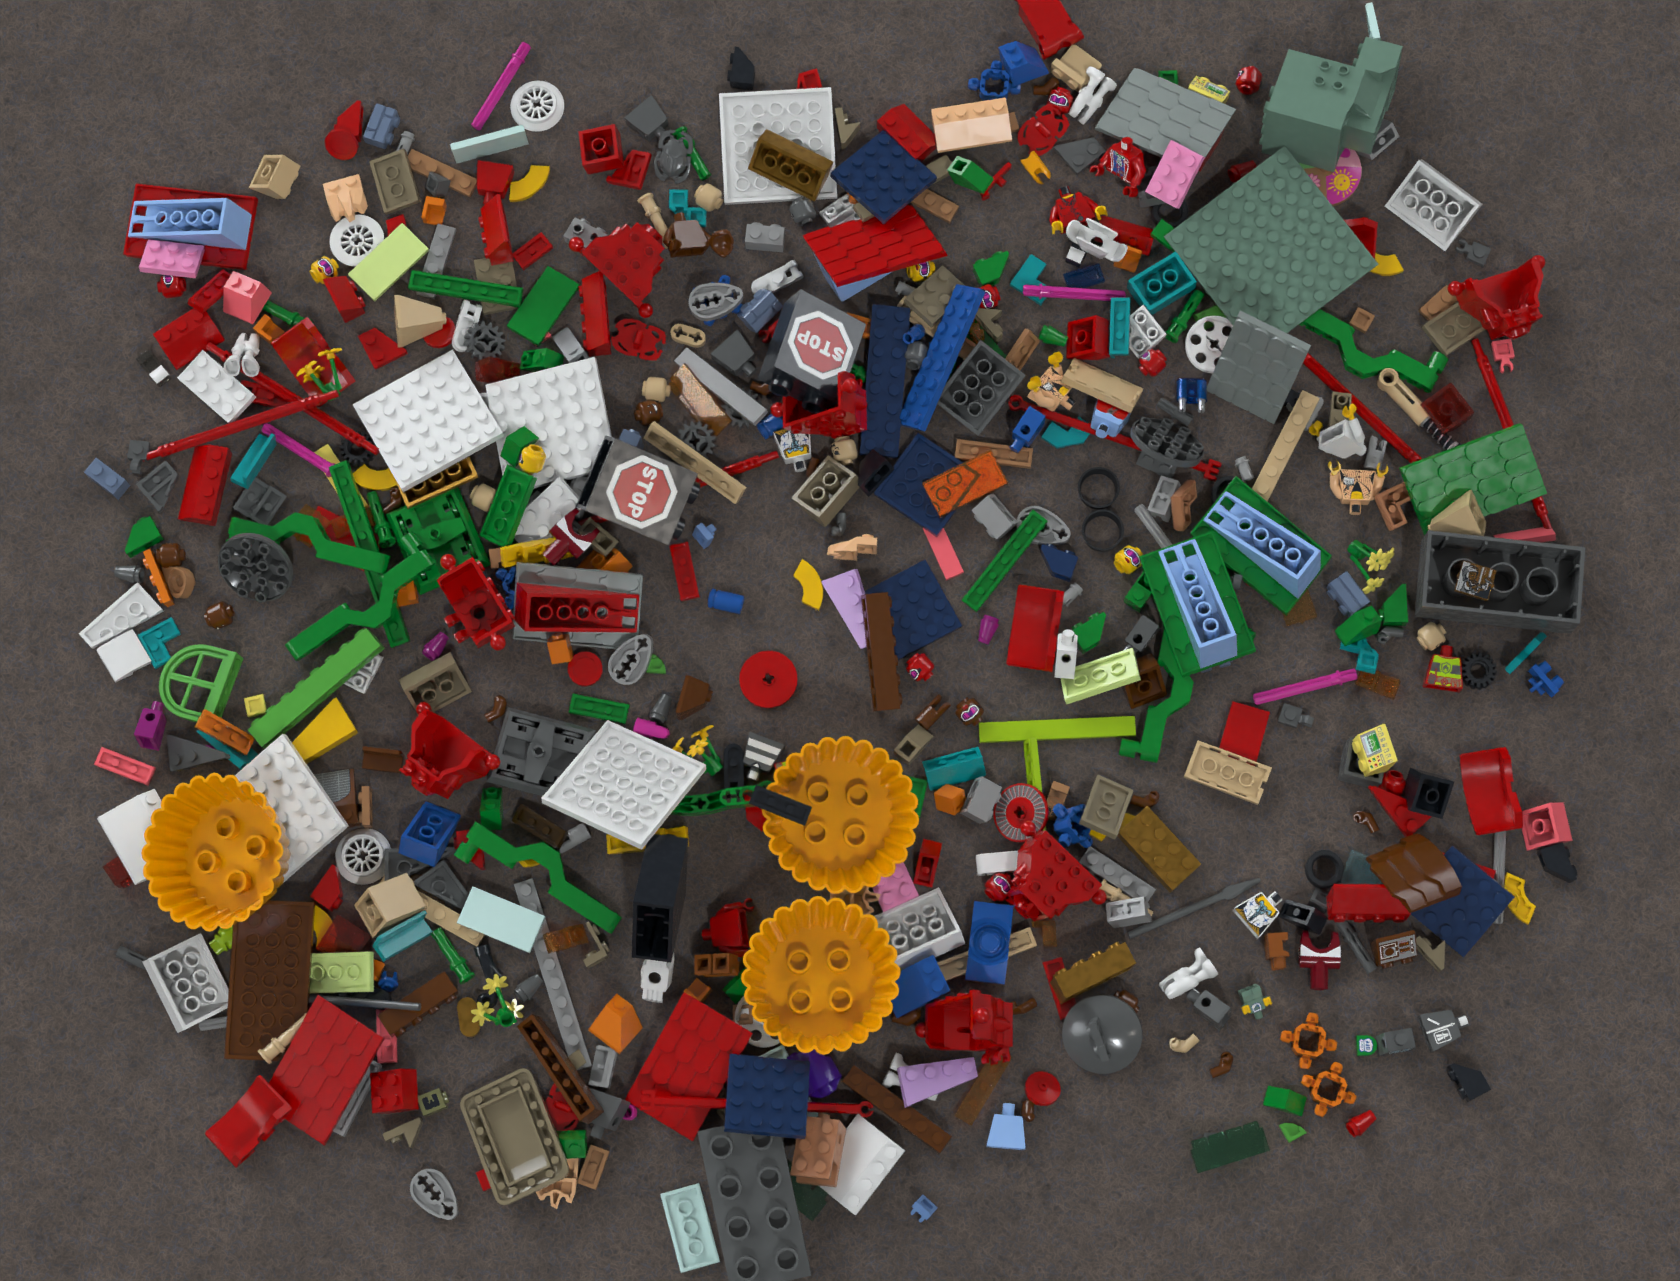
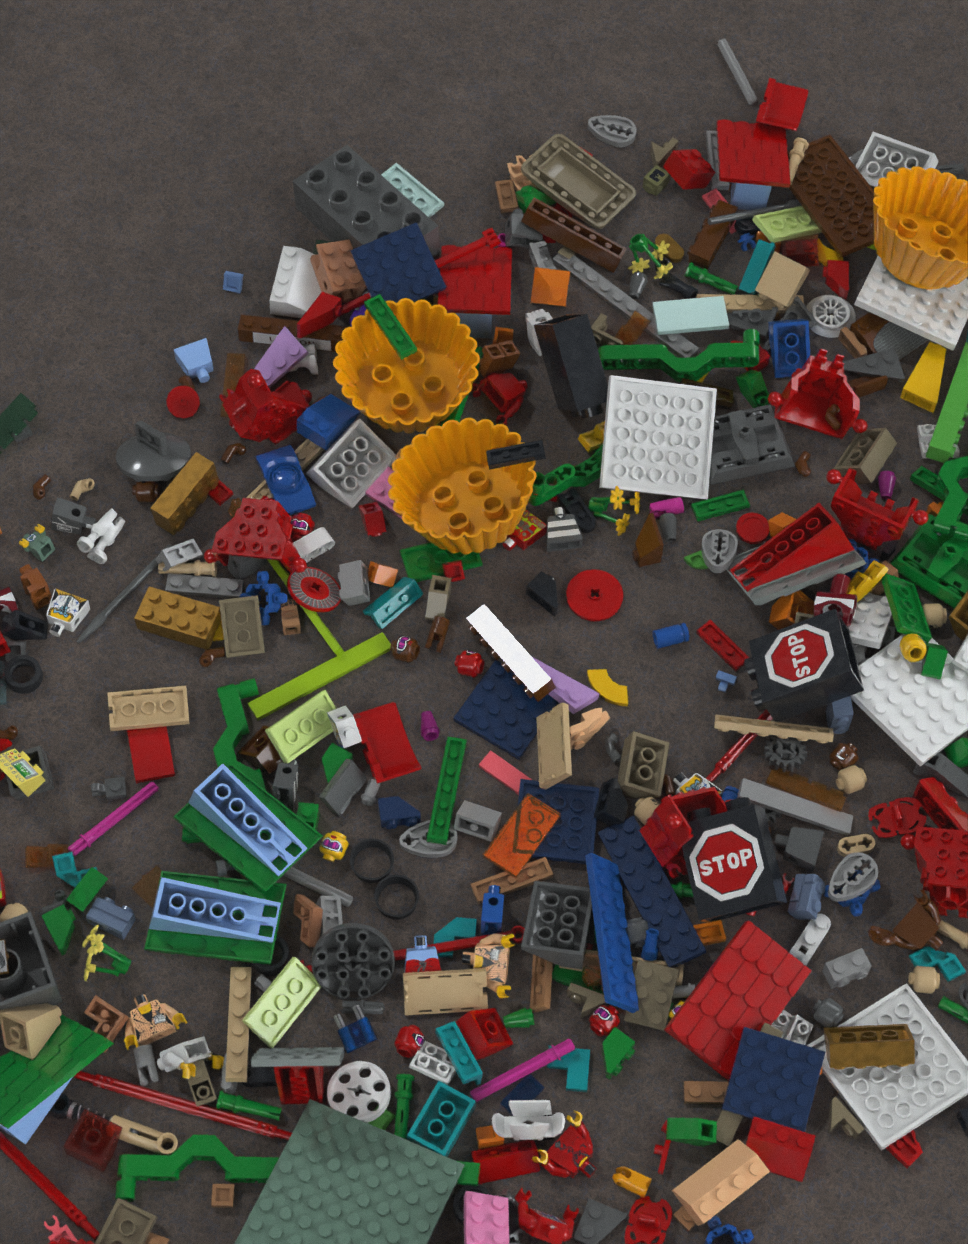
camera: 145 degrees right, 15 degrees down
(259, 1200) = (737, 72): none -> light grey axle
(359, 769) = (877, 365): none -> dark grey wing
(442, 737) = (831, 415): none -> reddish brown arm
(812, 703) = (544, 592): none -> black slope
(816, 1019) = (390, 326): none -> green tile
(861, 1102) = (320, 314): none -> red slope
(895, 540) = (554, 746): none -> tan piece
(1094, 607) = (343, 787): none -> dark grey piece
(1241, 444) = (282, 1002): none -> yellowish green tile
(1316, 384) = (238, 1104): none -> green pin

